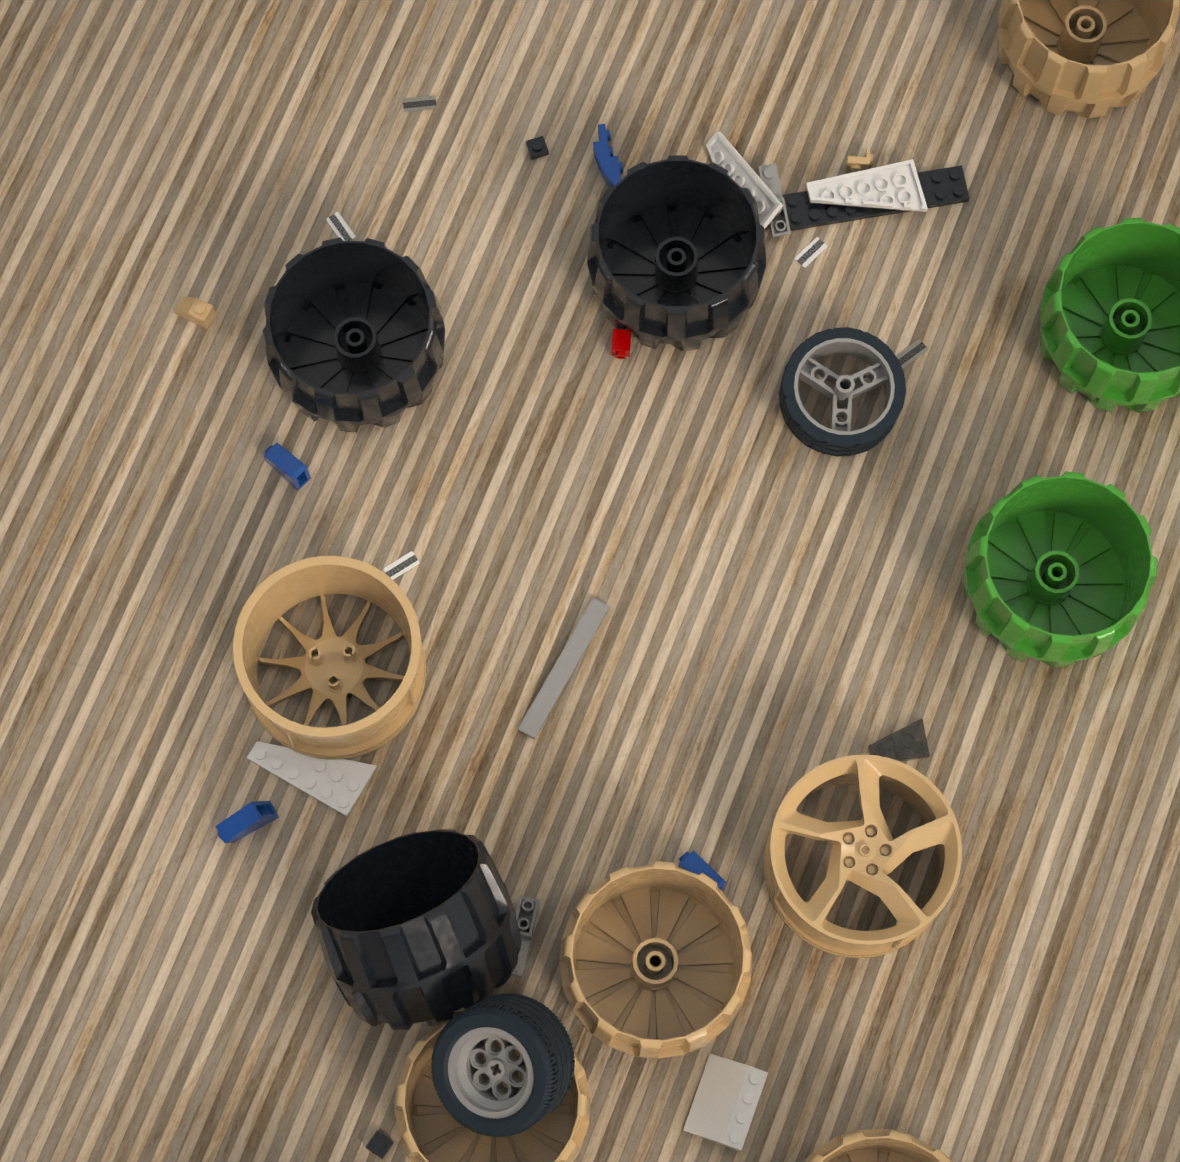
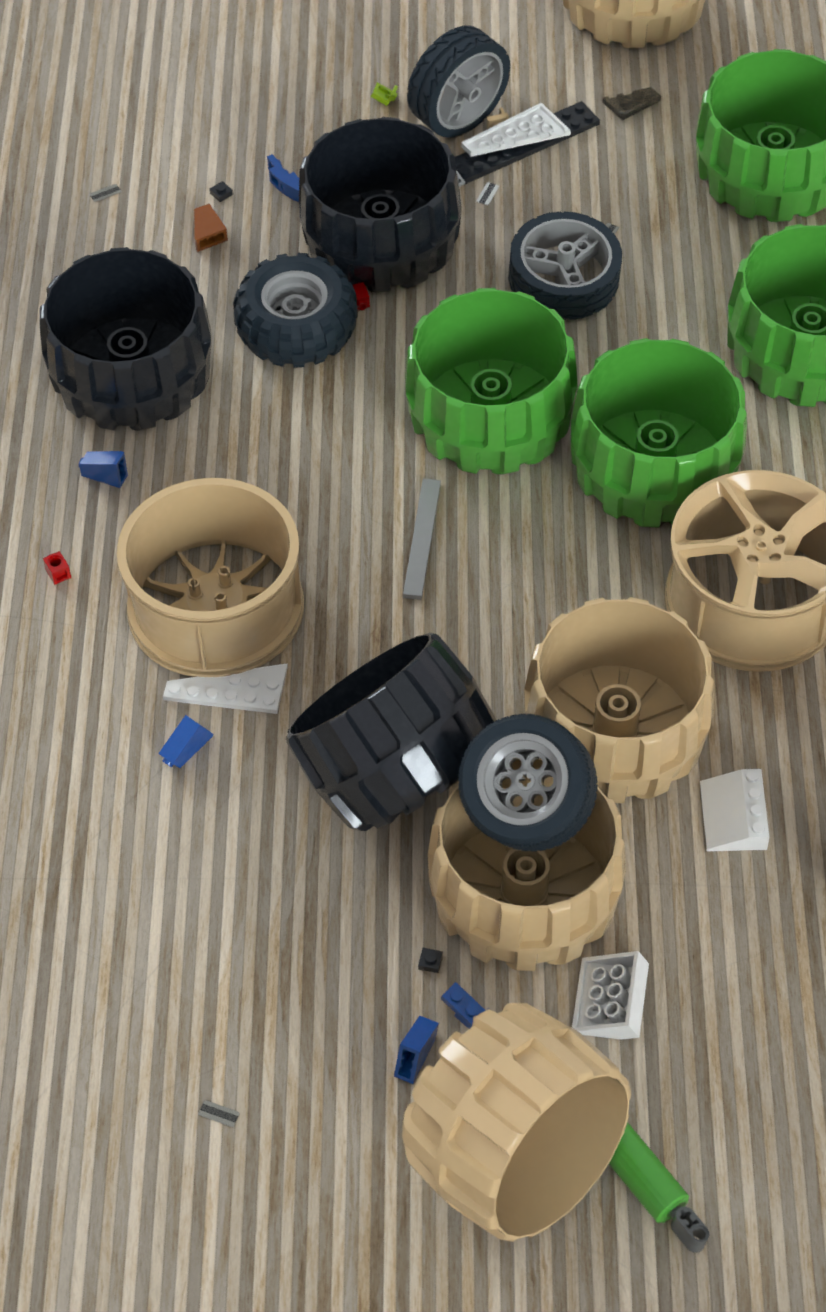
camera: 20 degrees left, 20 degrees down
(204, 575) = (57, 567): none -> red brick
(502, 194) = (208, 228): none -> dark orange slope
(524, 314) = (295, 310): none -> black wheel
(694, 528) = (491, 380): none -> bright green wheel
(756, 78) = (384, 94): none -> lime bracket
(826, 116) = (474, 79): none -> wheel
(841, 619) = (655, 427): none -> bright green wheel
(1010, 188) = (630, 104): none -> clear smoke wing

